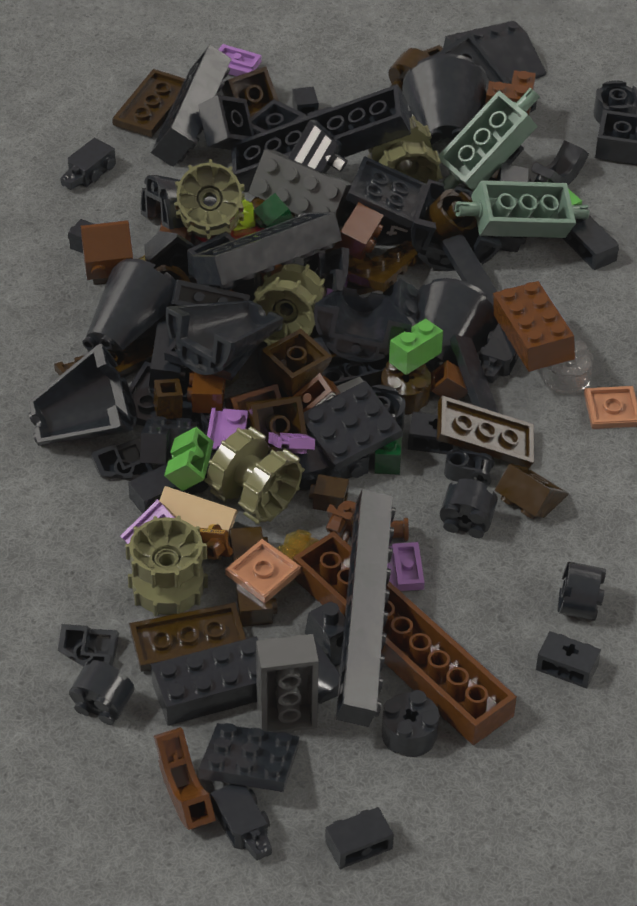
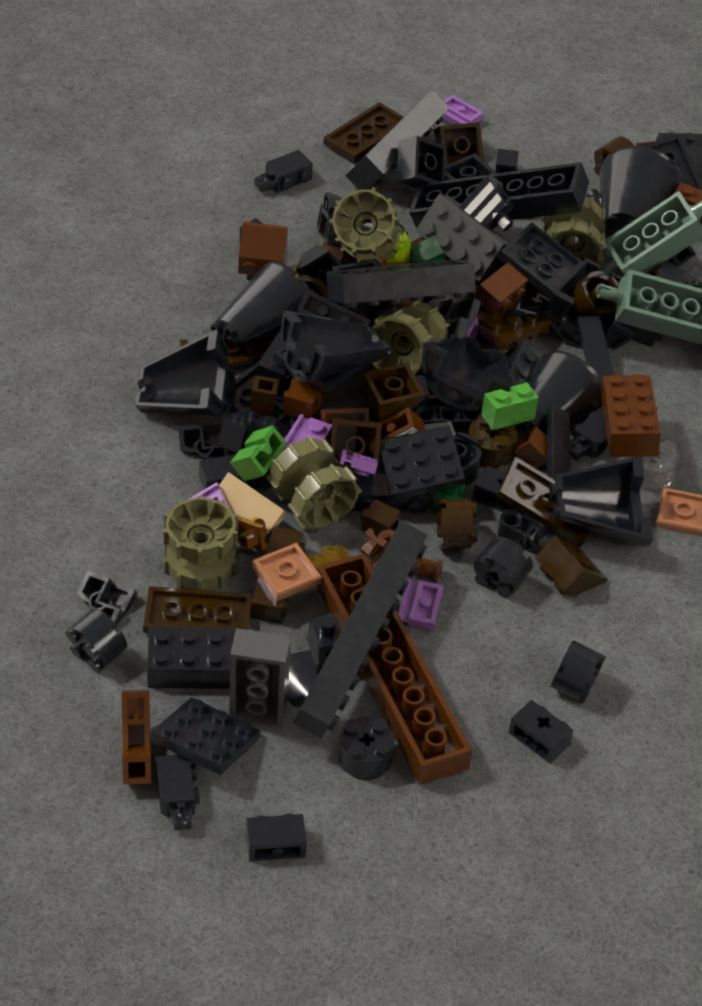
camera: 15 degrees right, 0 degrees up
(407, 477) = (456, 523): none -> dark brown brick
(541, 416) = (604, 500): none -> black cone

